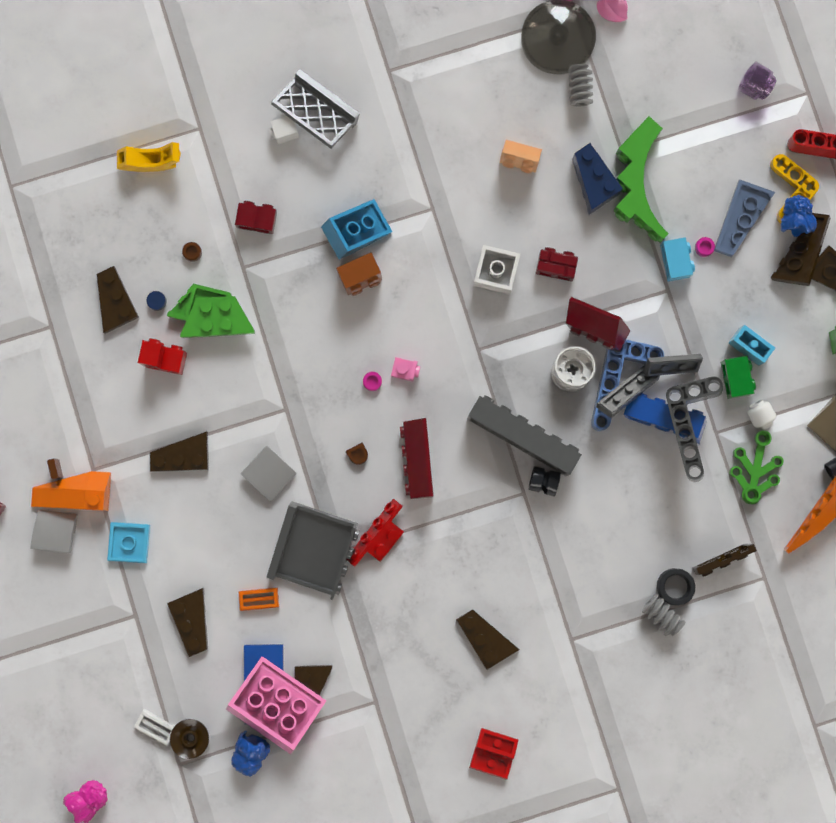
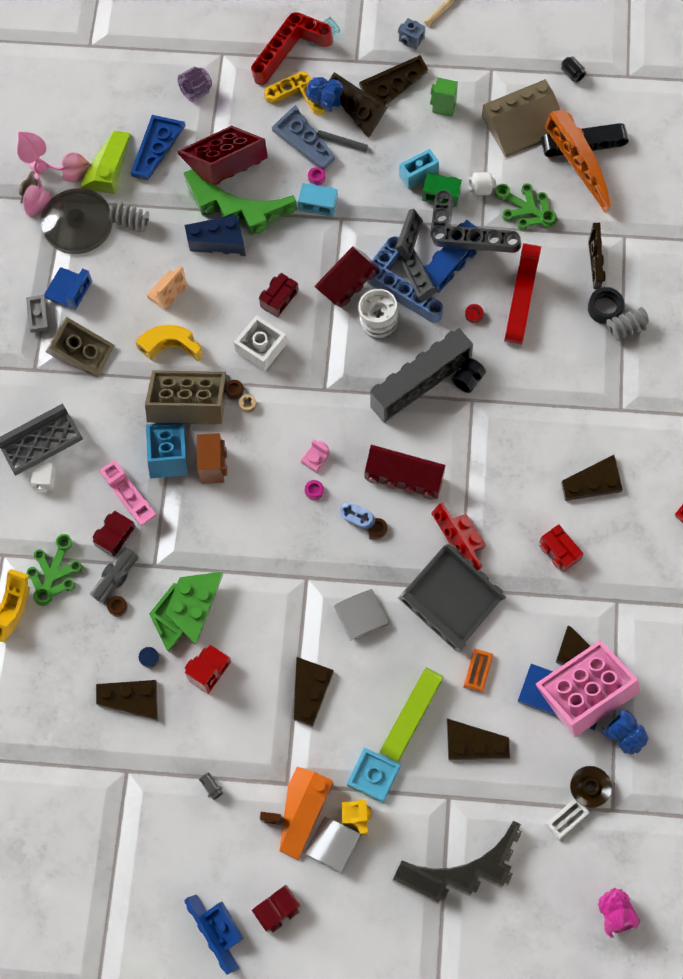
camera: 65 degrees left, 15 degrees down
(63, 405) = (214, 791): none -> dark grey pin
(85, 542) = (356, 815): none -> yellow brick
(85, 675) = (491, 867): none -> clear smoke arch
(193, 555) = (411, 714): none -> lime beam
(198, 180) = (53, 573): none -> bright green plant
(217, 236) = (114, 575): none -> dark grey piece
(299, 214) = (127, 493): none -> bright pink slope
(365, 432) = (355, 519): none -> medium blue beam
(403, 633) = (560, 548): none -> red brick
(415, 223) = (186, 397): none -> dark tan slope
(424, 102) = (80, 347): none -> dark tan slope
(437, 288) = (253, 402): none -> tan bush
(443, 264) = (234, 389): none -> reddish brown tile
(444, 46) = (37, 313): none -> light grey plate
(466, 173) = (167, 336): none -> yellow arch
(482, 62) = (68, 287): none -> blue bracket
(615, 460) = (474, 313): none -> red tile
(631, 37) = (106, 167): none -> lime wedge
(649, 501) = (522, 293): none -> red beam
(674, 74) = (157, 141): none -> blue wing
(686, 146) = (224, 154): none -> dark red slope
(756, 255) = (341, 140): none -> dark grey bar

